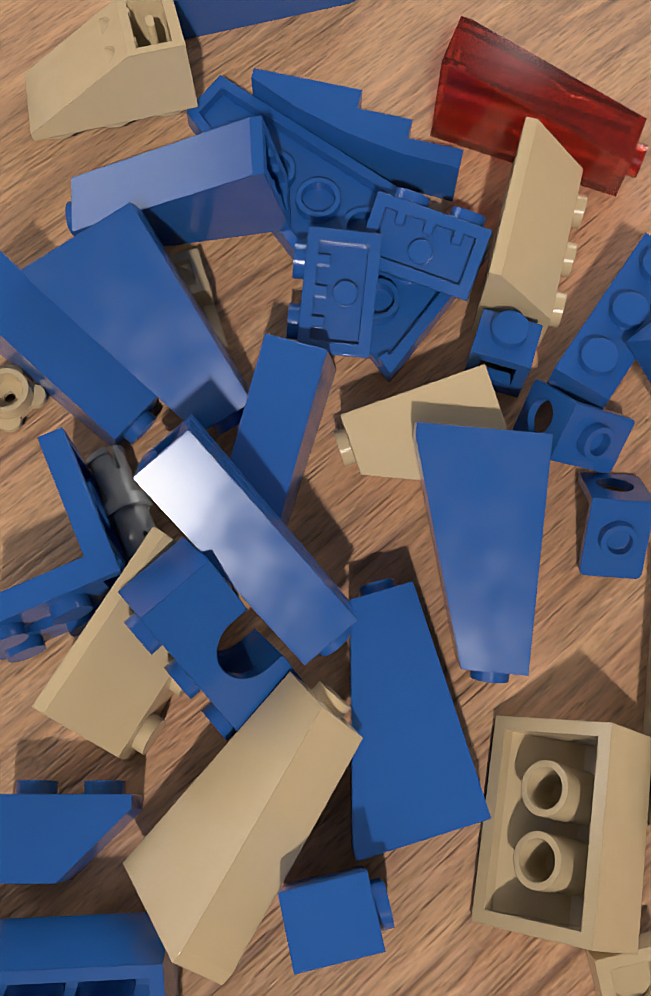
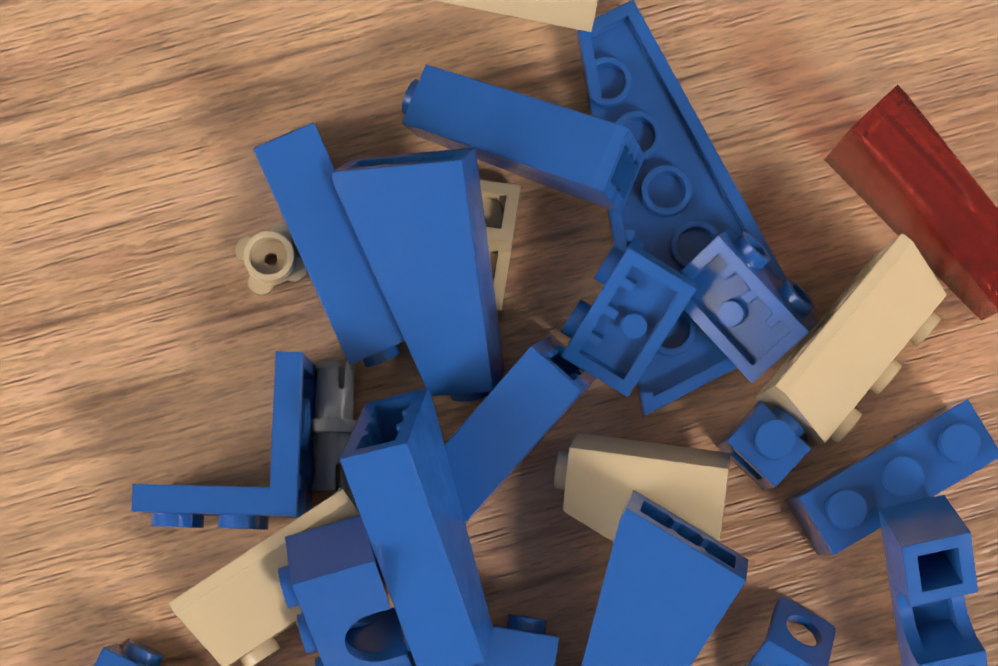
camera: 25 degrees right, 10 degrees up
(366, 136) = (752, 152): blue slope -> none
(581, 432) = (789, 564): blue bracket -> none

